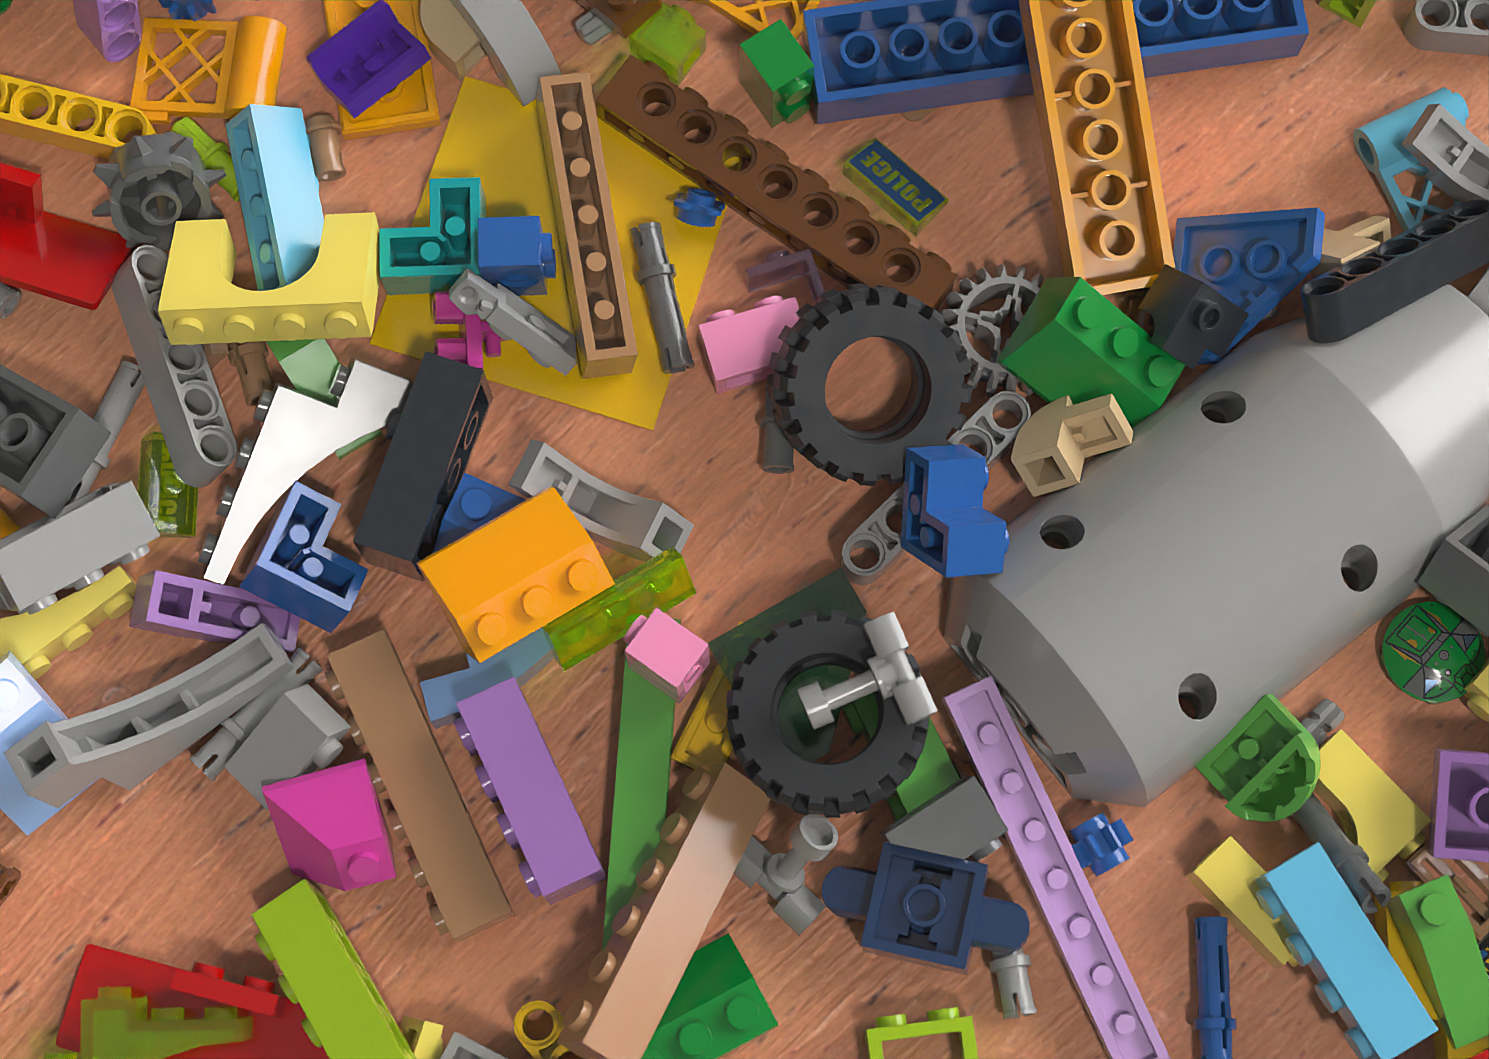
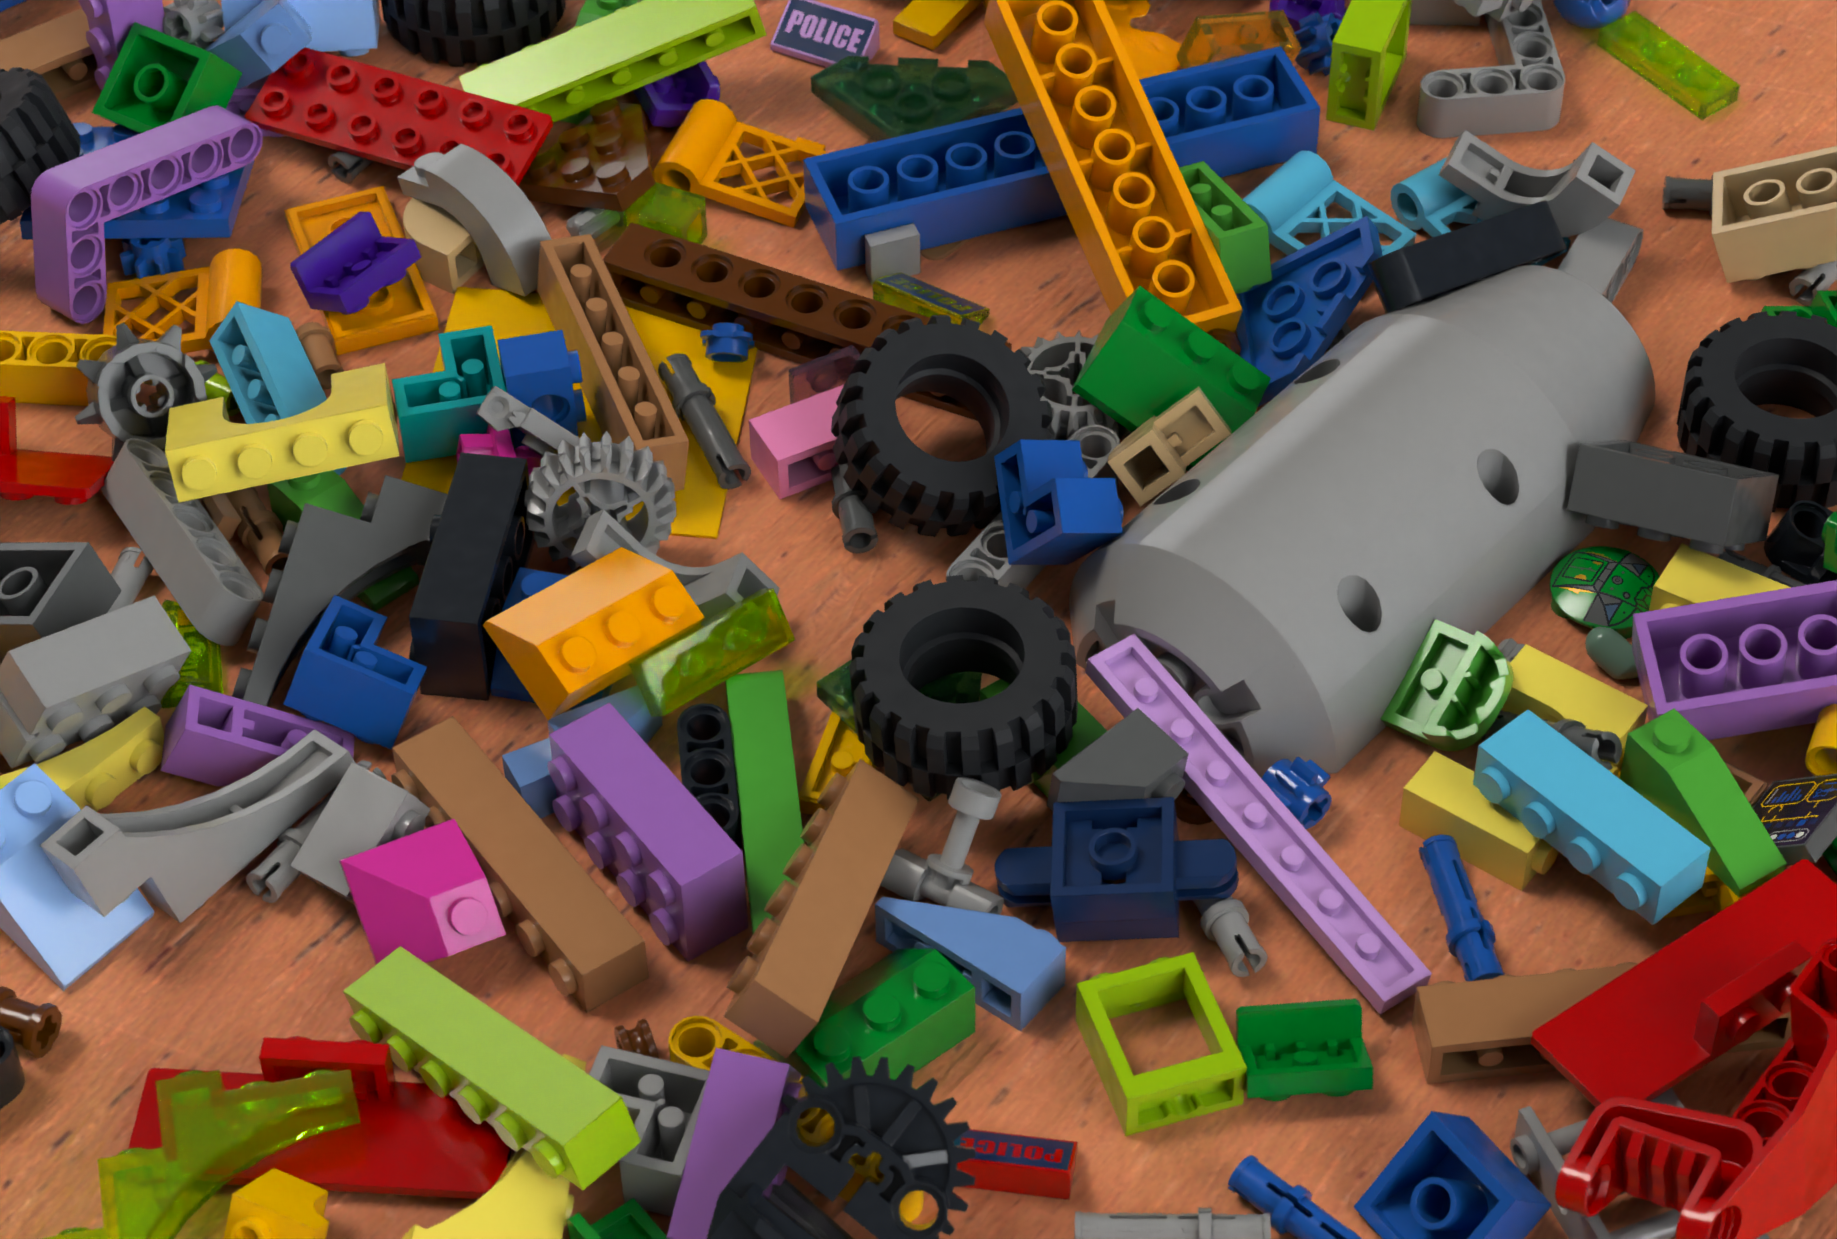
camera: 10 degrees left, 30 degrees down
(490, 1006) = (636, 1040): none -> reddish brown bush
(548, 408) = (604, 478): none -> light grey gear
(592, 709) = (709, 764): none -> black beam
(666, 654) = (775, 662): bright pink brick -> none
(776, 74) = (786, 216): green brick -> none
(802, 970) = (1000, 955): none -> medium blue slope
(870, 121) = (892, 252): none -> light grey tile
(888, 673) = (1018, 603): light grey bar -> none
(1183, 166) = (1233, 227): none -> bright green brick
(1190, 317) = (1266, 324): black brick -> none
(1257, 122) = (1301, 192): none -> medium azure piece
(1422, 733) = (1611, 653): none -> sand green arm

